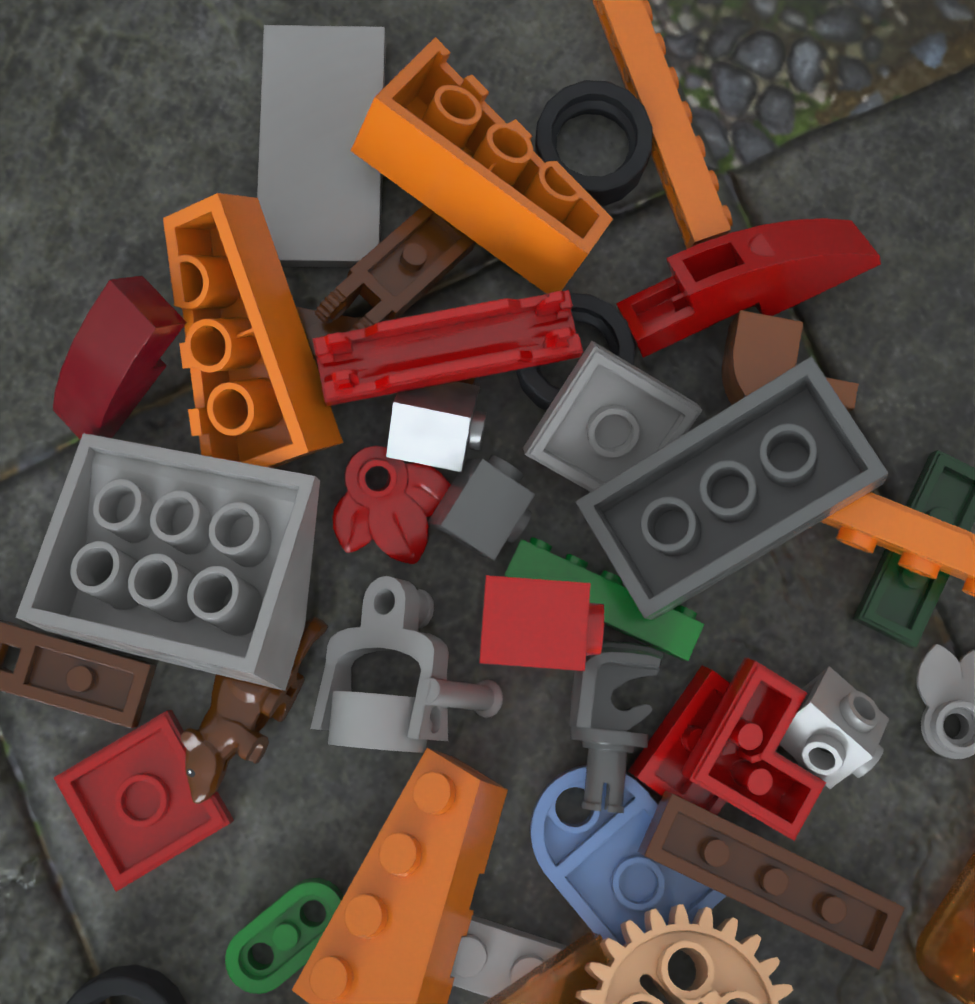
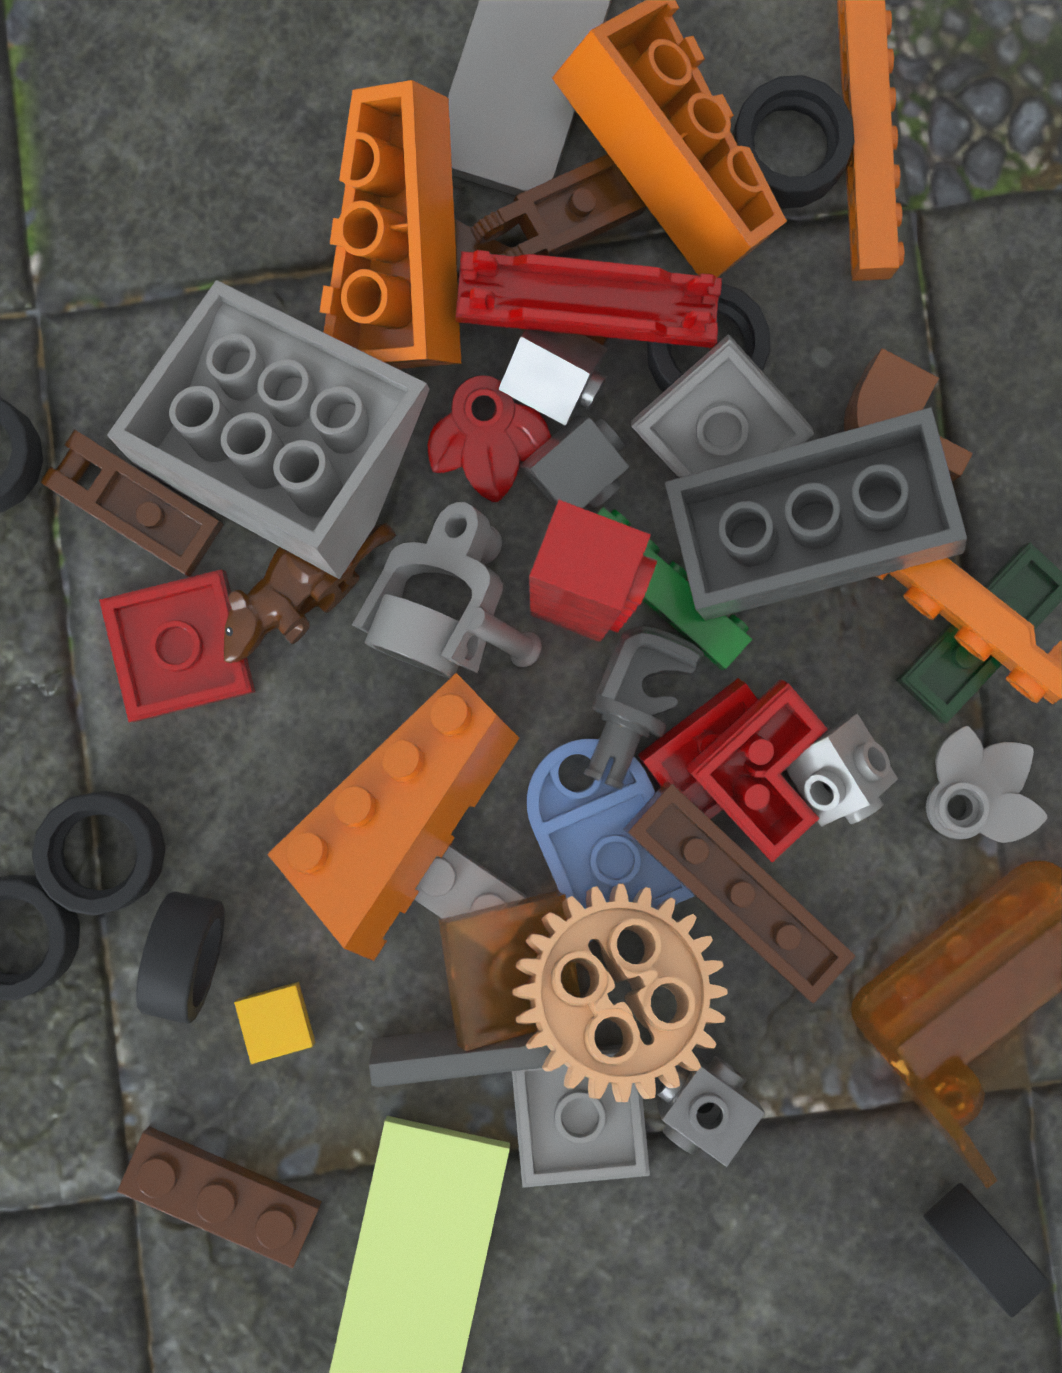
camera: 20 degrees right, 5 degrees up
(115, 357) = (267, 214): dark red slope -> none
(286, 932) = (273, 802): green plate -> none
(754, 266) = (918, 311): red slope -> none

